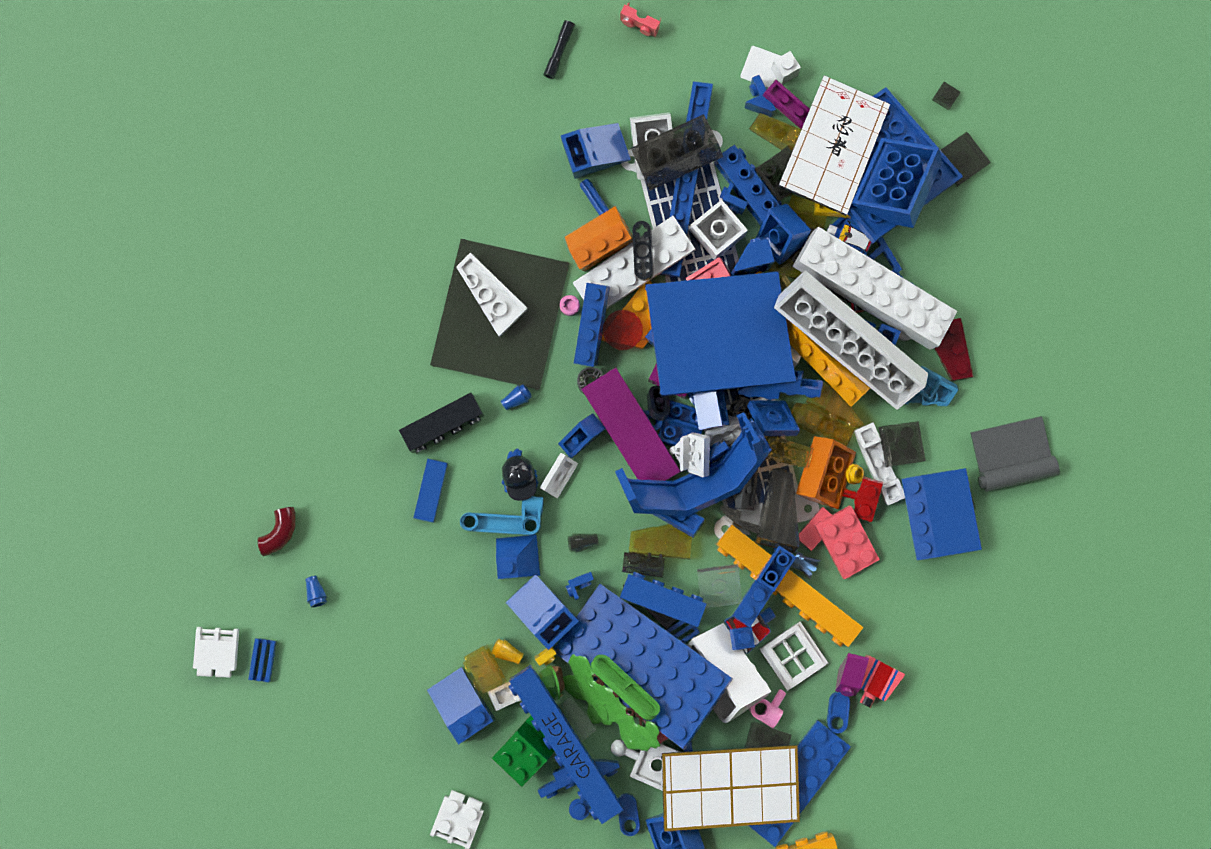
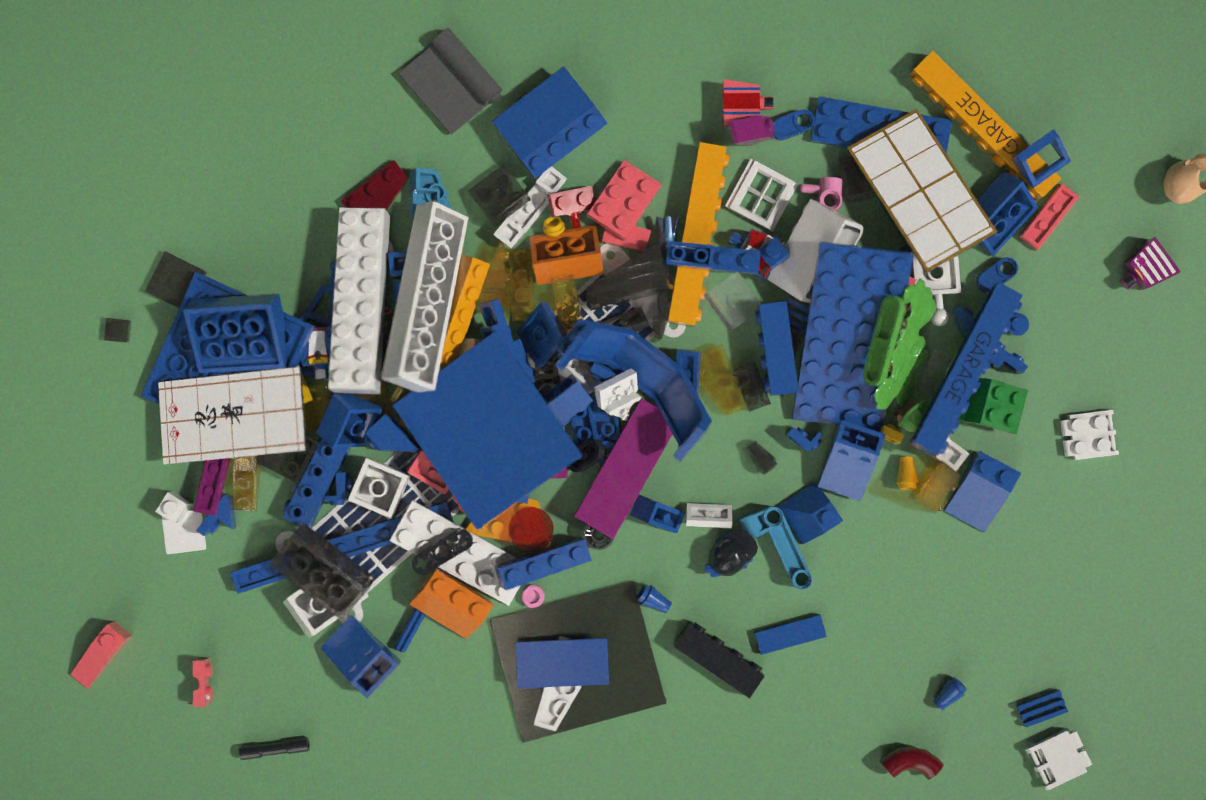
camera: 120 degrees left, 5 degrees up
(505, 299) = (562, 663): none -> blue tile

